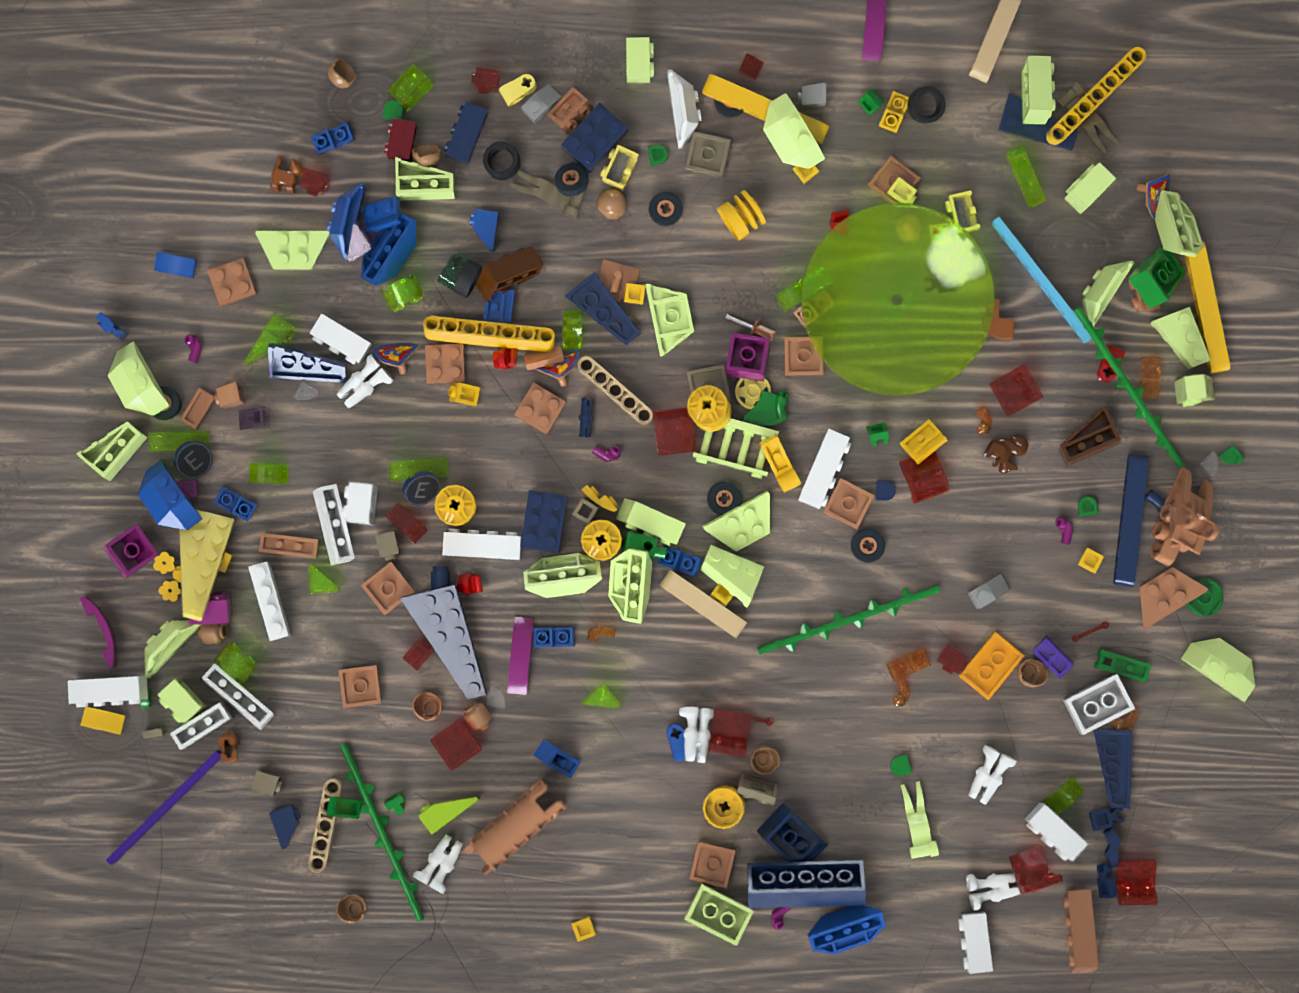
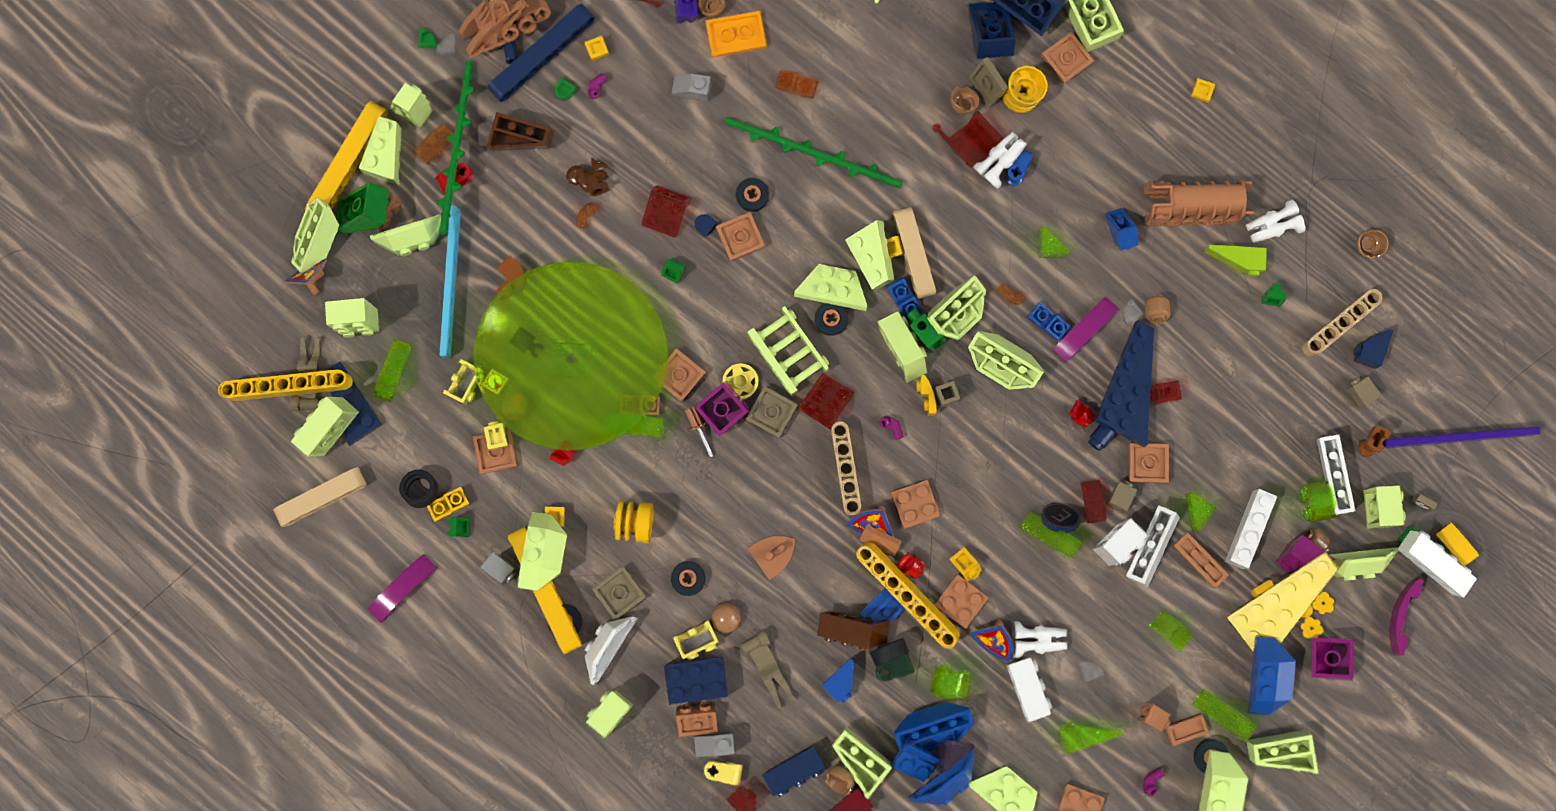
camera: 135 degrees left, 5 degrees down
(189, 487) = (1243, 672): magenta tile -> none
(193, 459) = (1224, 691): black tile -> none
(201, 725) = (1382, 475): white brick -> none
(235, 503) = (1216, 629): blue slope -> none
(254, 418) = (1148, 683): clear purple slope -> none
(300, 365) = (1076, 692): wing -> none
(344, 807) = (1318, 323): green tile -> none
(360, 686) = (1231, 406): nougat plate -> none
(383, 840) = (1297, 291): green plant -> none
(427, 706) = (1190, 347): nougat hair -> none
(456, 744) = (1190, 301): clear red bracket -> none
(465, 511) = (1034, 485): yellow wheel -> none
(481, 545) = (1048, 436): white brick -> none
(493, 149) = (784, 740): black tyre -> none
(544, 521) = (985, 413): dark blue brick -> none
(572, 330) = (839, 544): clear neon green slope -> none
(575, 172) = (748, 656): black bush -> none
(586, 417) = (886, 467): dark blue pin -> none
(602, 307) = (801, 540): dark blue wing -> none
(606, 550) = (949, 371): yellow wheel -> none
(634, 293) = (768, 532): yellow plate -> none
(657, 154) = (658, 626): green tile -> none
(669, 316) = (755, 491): yellowish green wing -> none
(711, 419) = (778, 382): yellow wheel -> none
(750, 66) = (526, 634): clear red slope -> none
(768, 410) = (740, 356): green arm -> none
(779, 463) = (766, 308): yellow plate -> none
(823, 469) = (736, 277): white brick -> none
(900, 765) = (865, 17): green tile -> none
(903, 695) = (818, 65): clear orange arm -> none
(923, 441) = (644, 235): yellow plate -> none
(952, 660) = (761, 60): clear red brick -> none
(1016, 390) = (541, 216): clear red bracket -> none

